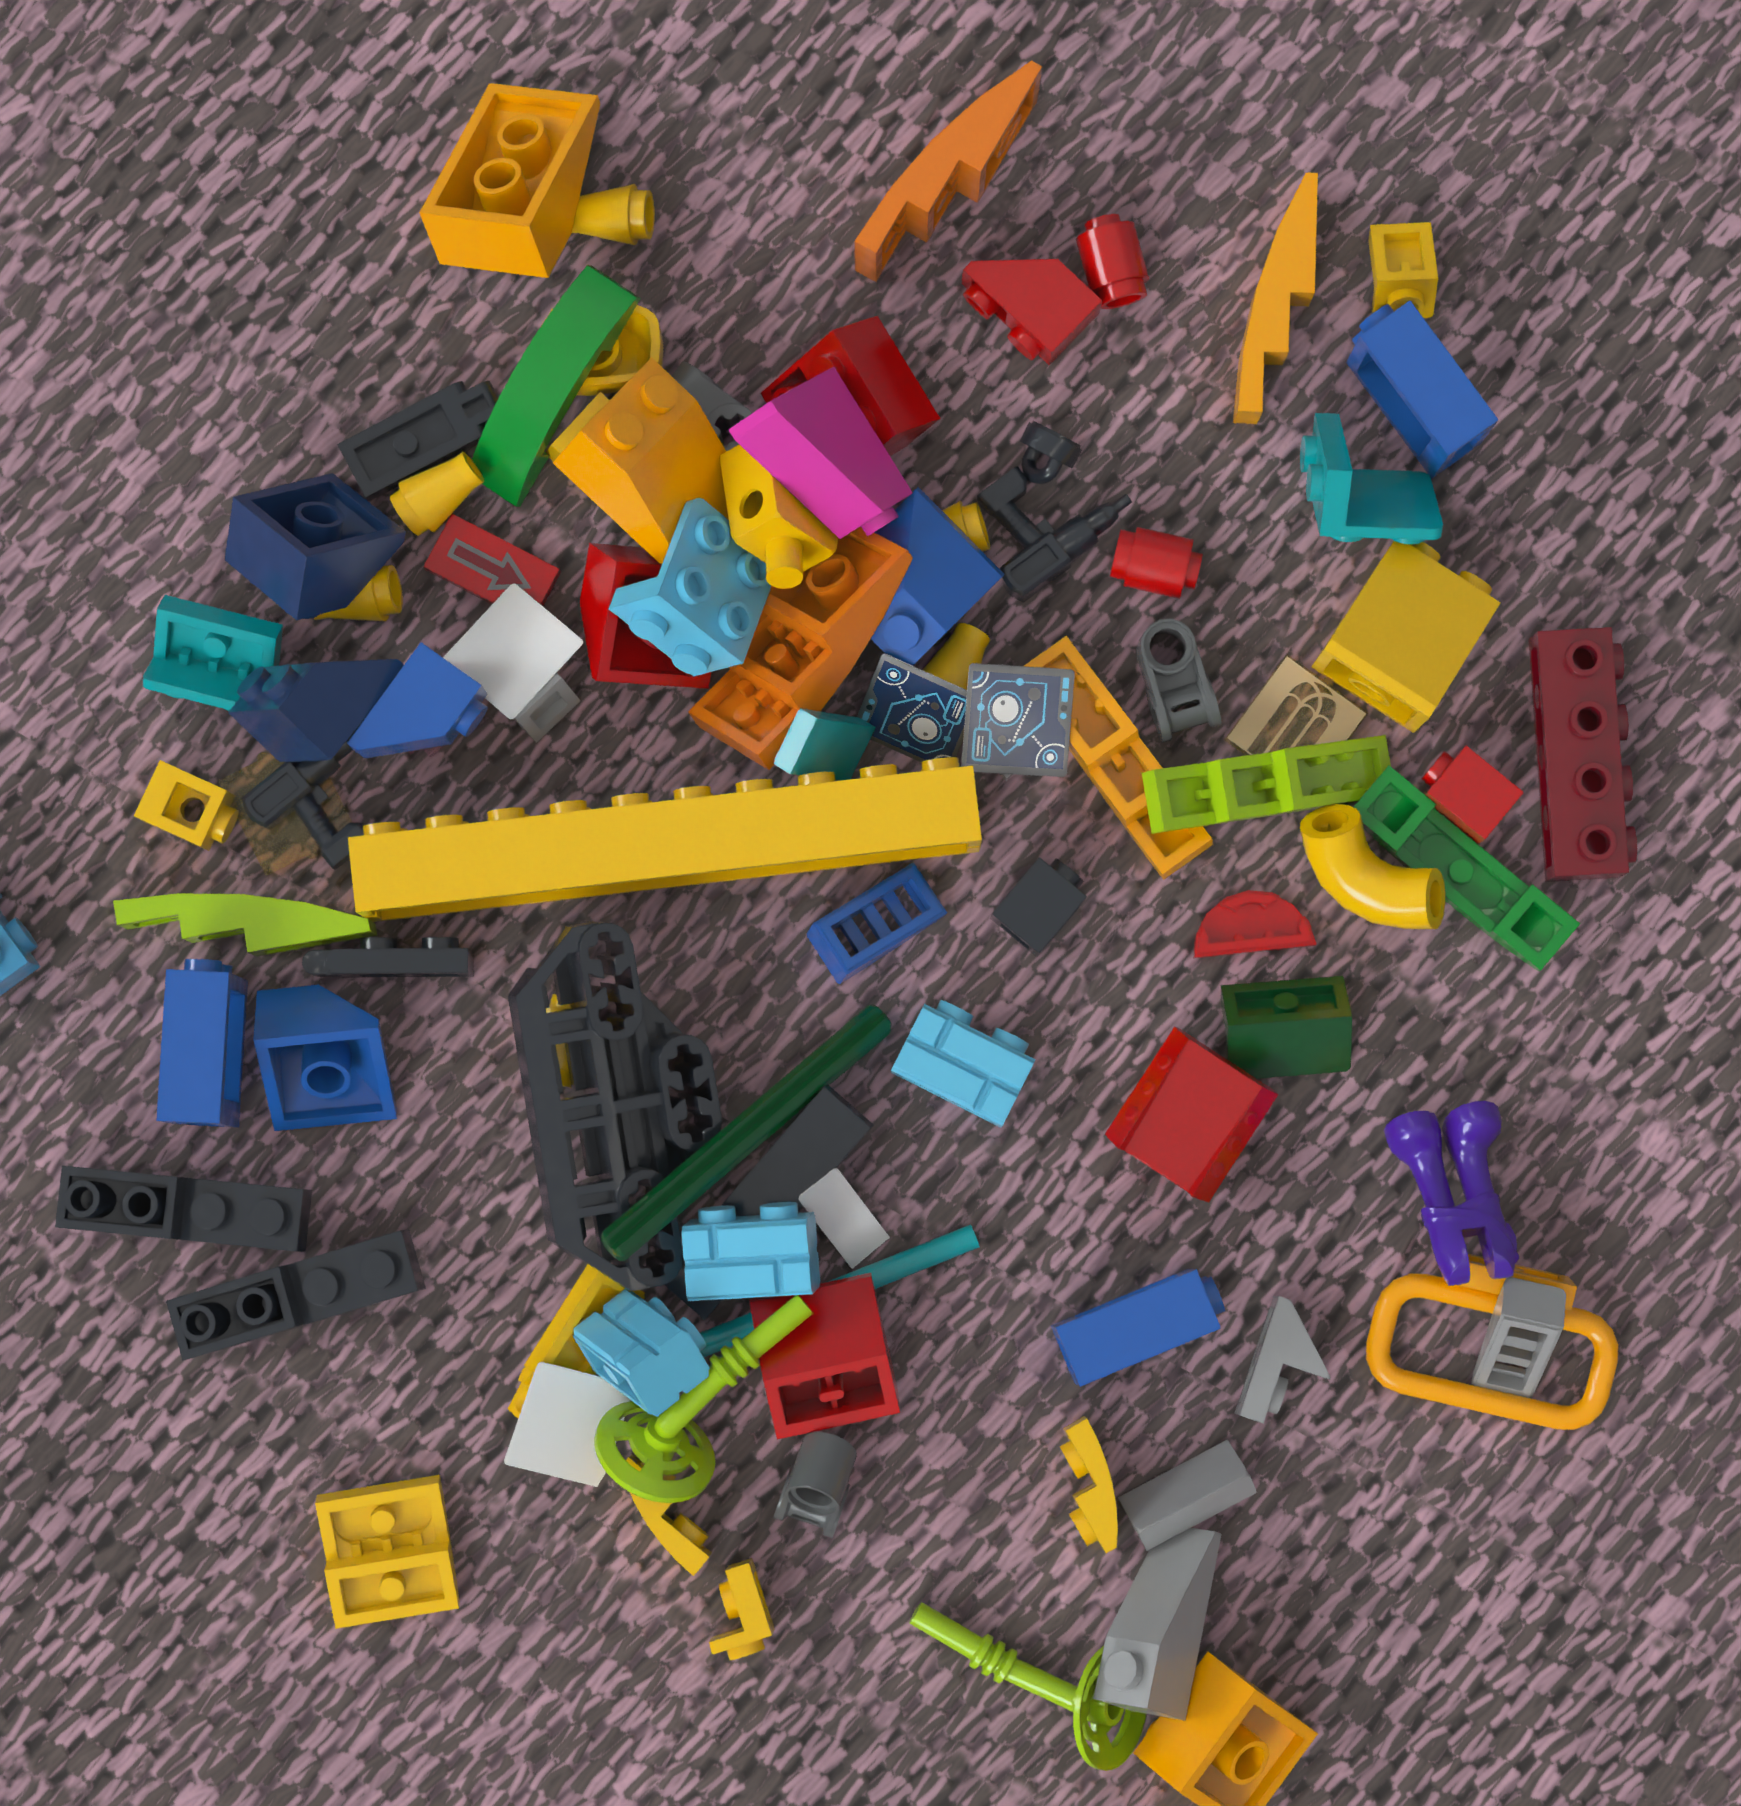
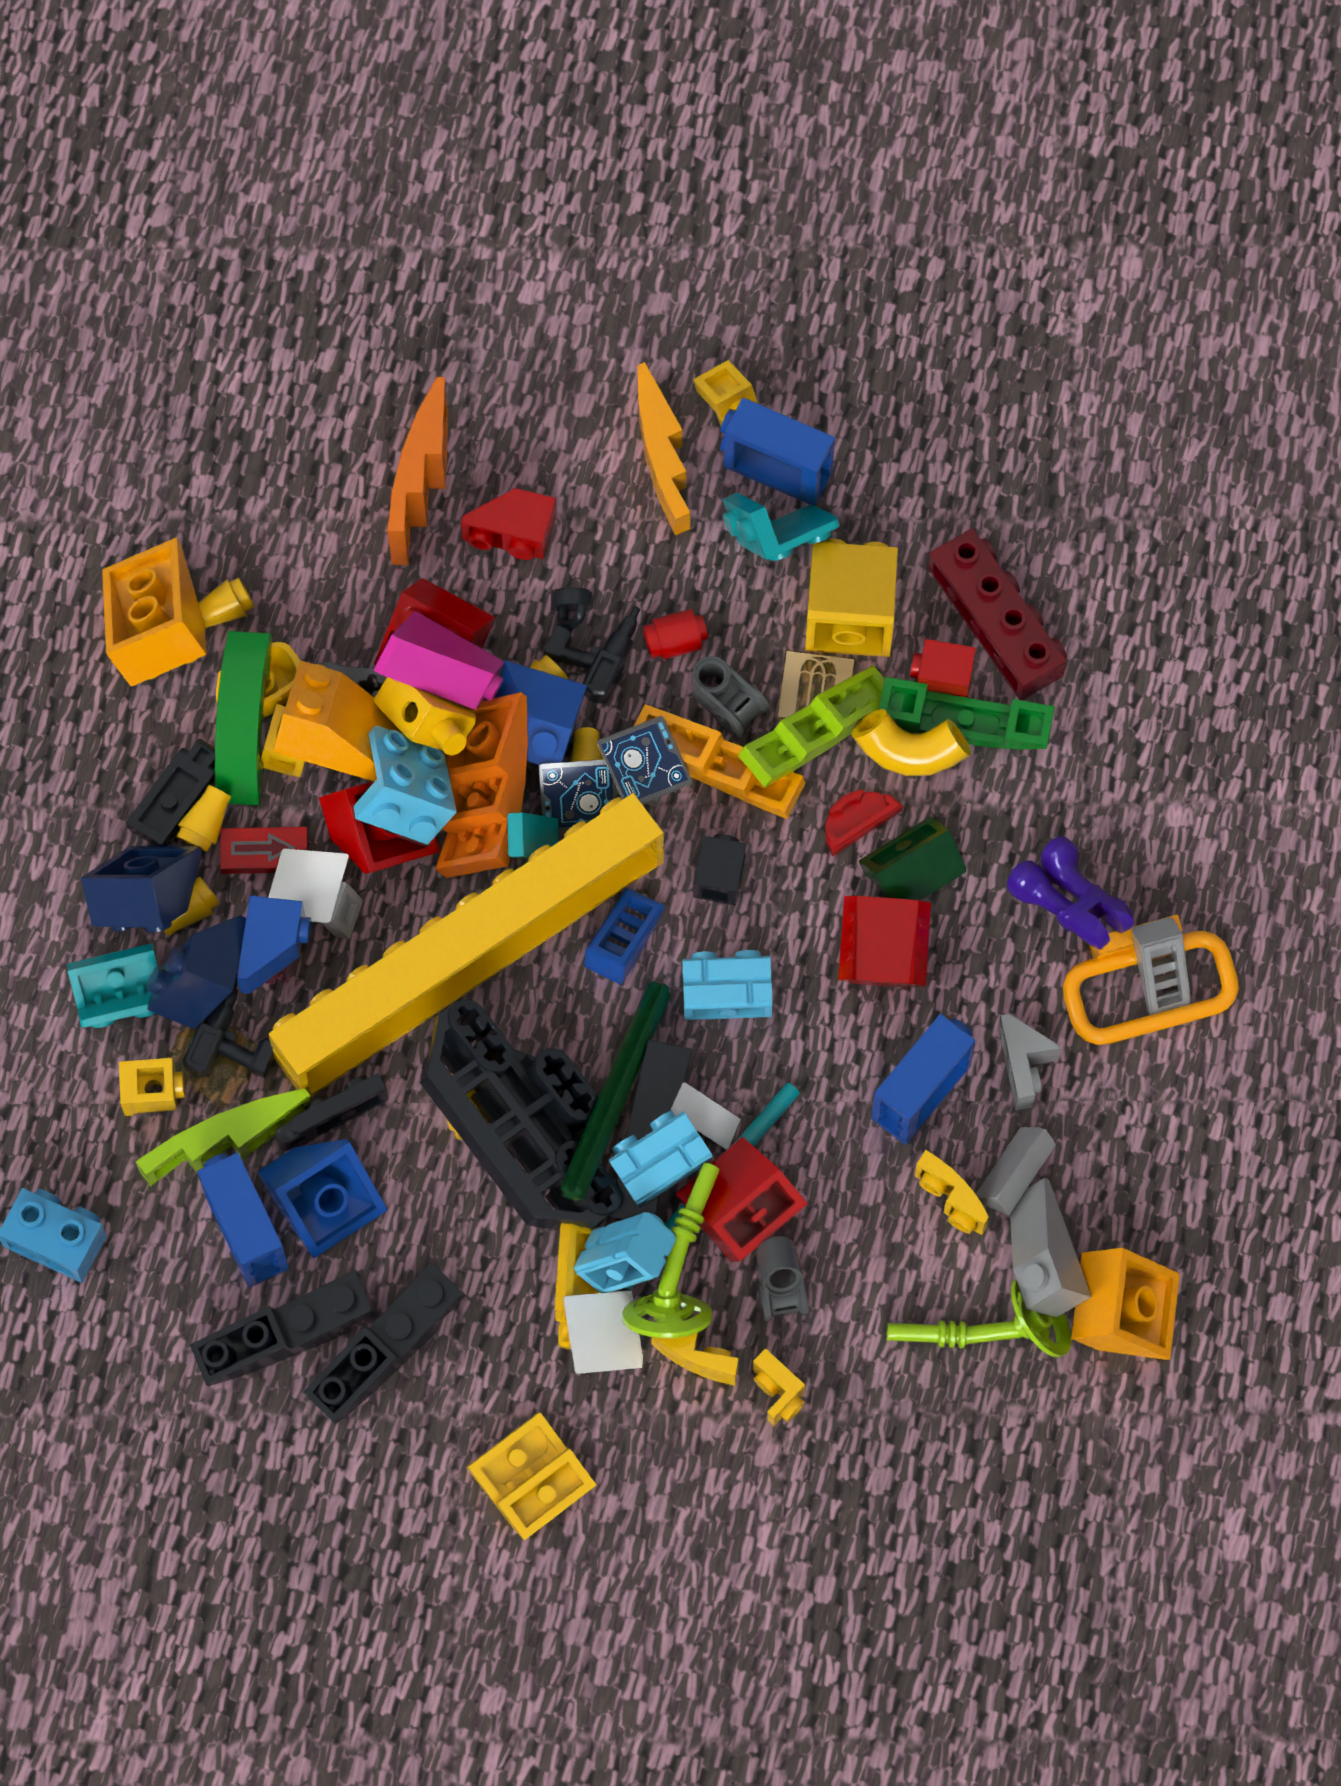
camera: 30 degrees left, 15 degrees down
(1113, 261) = (549, 475): red brick -> none

